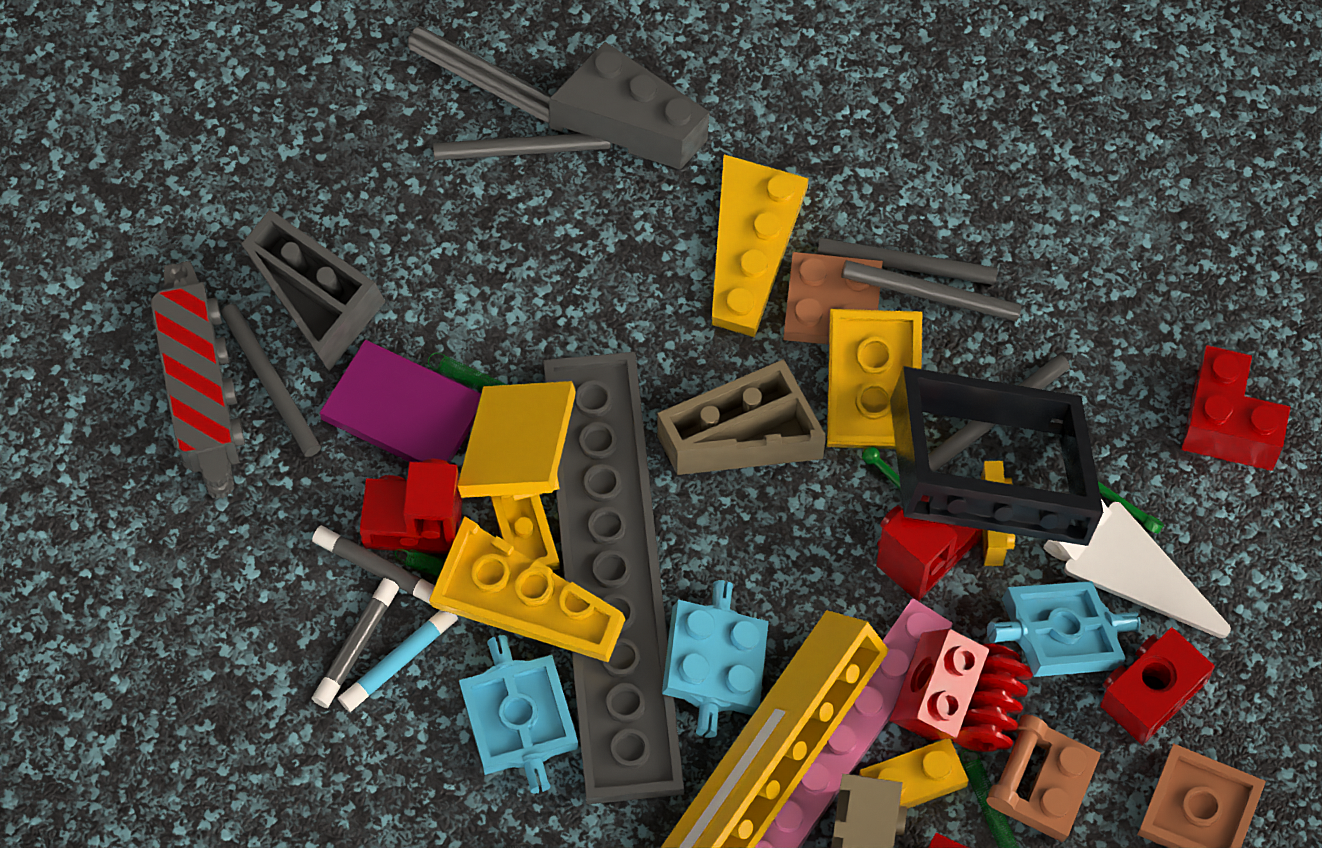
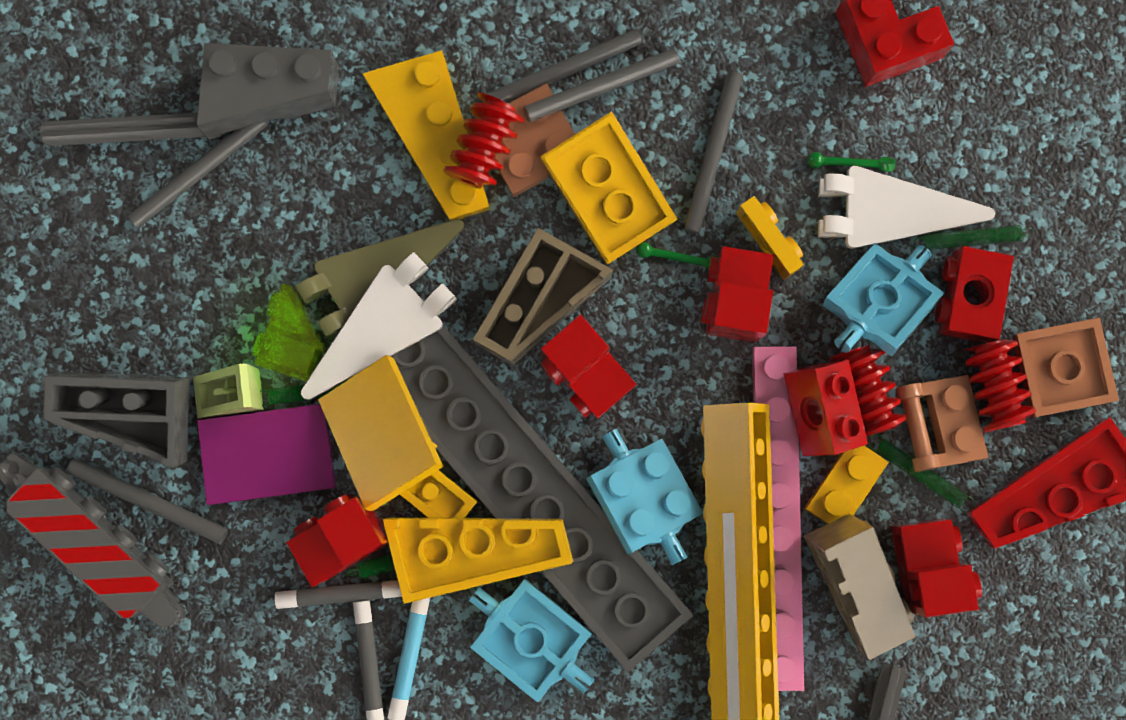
camera: 35 degrees left, 20 degrees up
(413, 331) = (228, 391): none -> yellowish green slope
(495, 325) = (291, 339): none -> clear neon green slope
(594, 358) = (383, 323): none -> white flag
(608, 322) = (352, 273): none -> olive flag
(740, 498) = (587, 369): none -> red brick
(786, 263) = (483, 142): none -> red piece
(991, 503) = (781, 255): black window -> none
(1120, 776) = (999, 384): none -> red piece
(1198, 639) = (980, 236): none -> green piece

